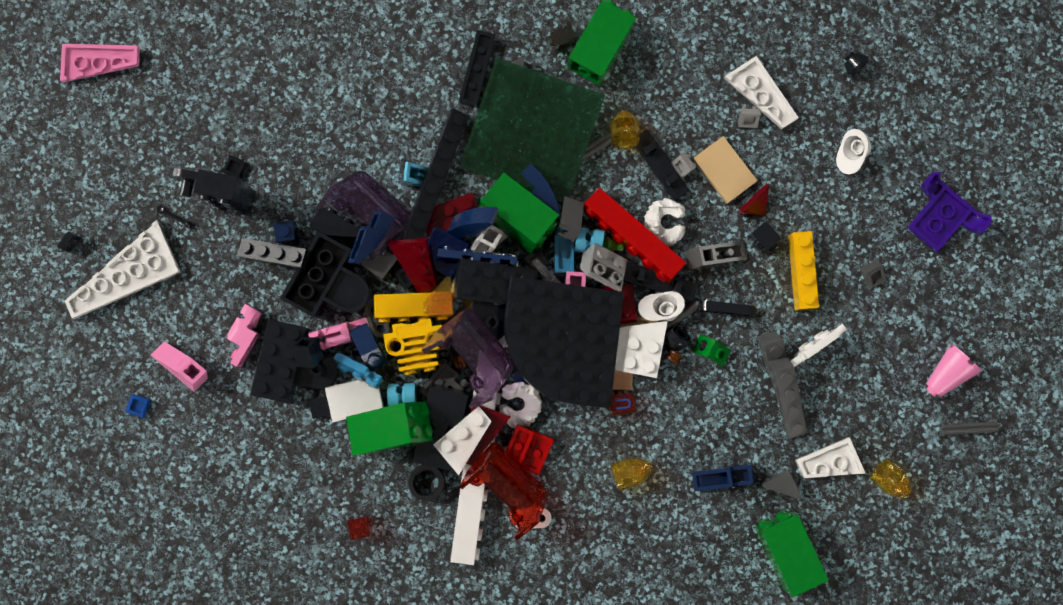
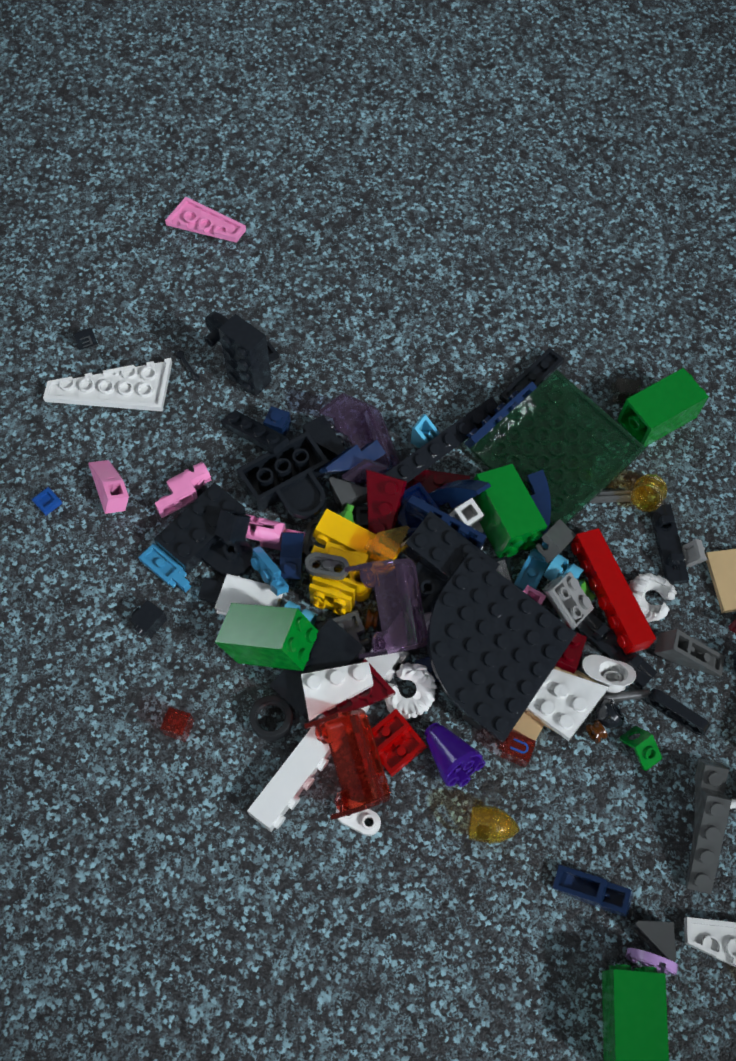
camera: 30 degrees right, 20 degrees down
(271, 409) = (165, 567): none -> dark azure hinge
(285, 459) = (147, 619): none -> black brick
(391, 286) = (347, 512): none -> bright green rock
(404, 348) = (327, 565): none -> dark grey plate
(475, 109) = (501, 411): none -> dark blue wing
(576, 436) = (452, 755): none -> dark purple cone
(785, 506) = (652, 960): none -> lavender tile

